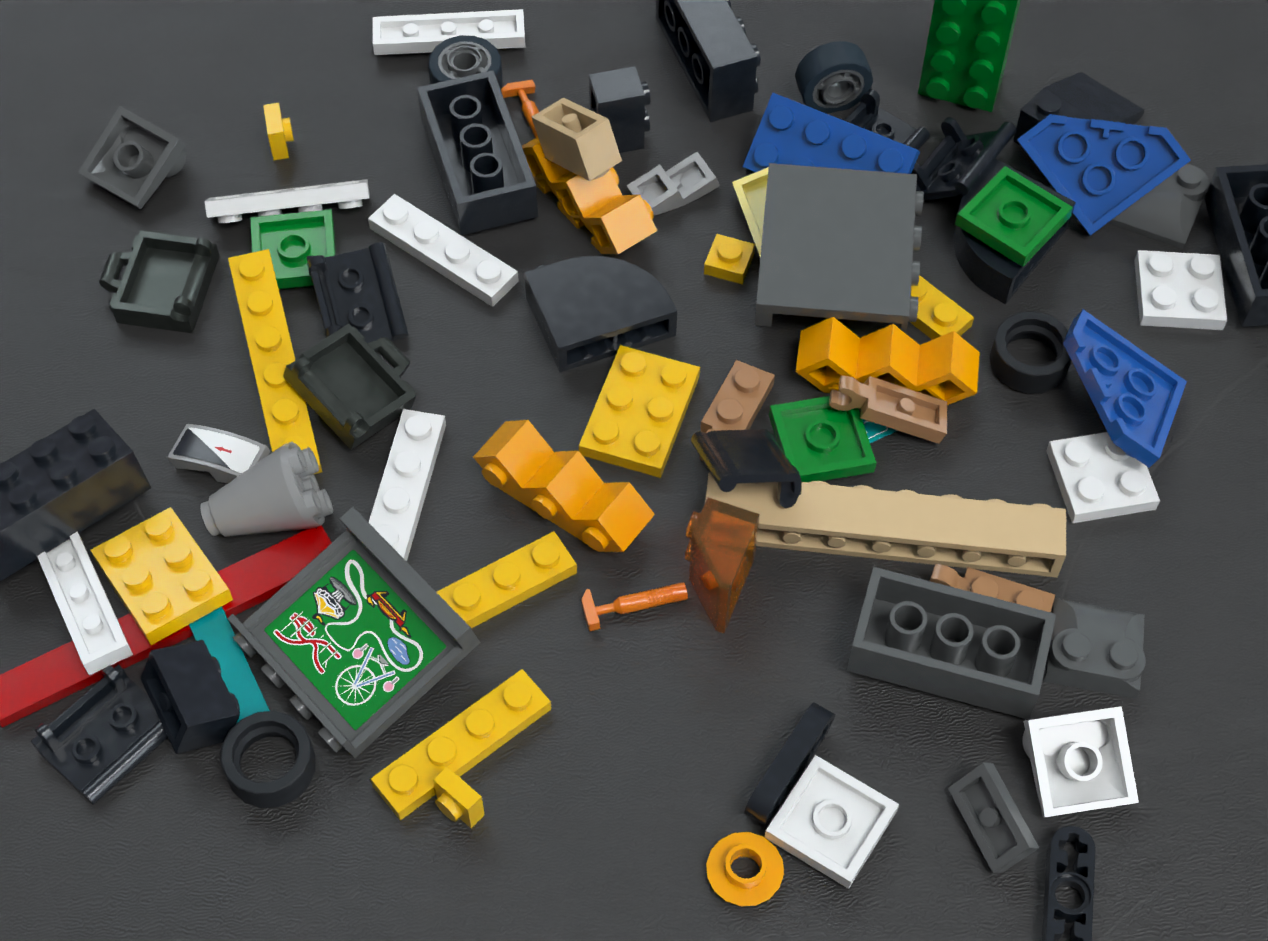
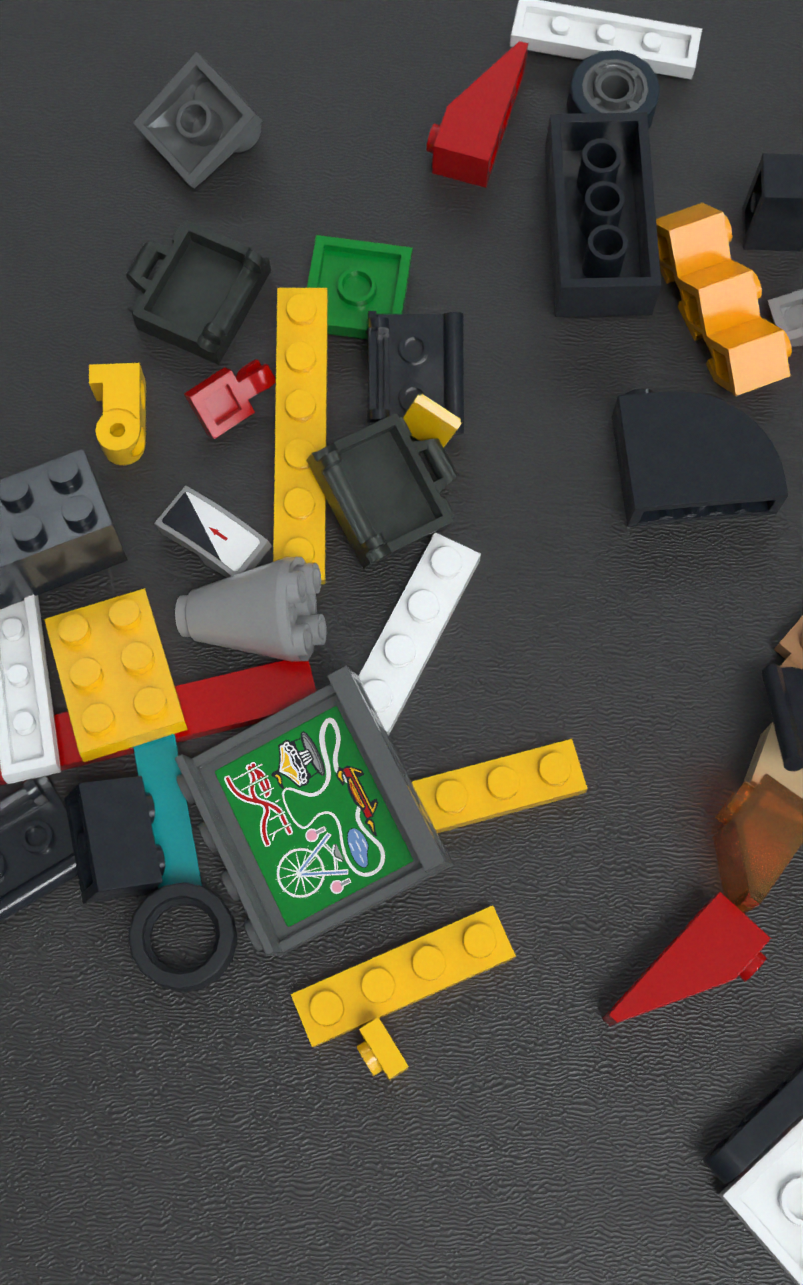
camera: 15 degrees right, 15 degrees up
(121, 386) = (123, 422): none -> yellow leg
(204, 350) = (223, 398): none -> plate
(278, 131) = (374, 125): yellow plate -> none
(306, 198) = (349, 218): white plate -> none
(361, 111) = (476, 121): none -> red slope
(378, 322) = (430, 420): none -> yellow slope
(443, 250) = (530, 331): white plate -> none
(528, 107) = (676, 163): orange piece -> none
(563, 488) = (596, 690): light orange brick -> none
(577, 139) = (727, 241): tan brick -> none
(632, 602) = (639, 852): orange piece -> none
(639, 411) = (709, 605): yellow plate -> none
(696, 668) = (703, 956): none -> red slope
(737, 889) = (657, 1233): light orange piece -> none

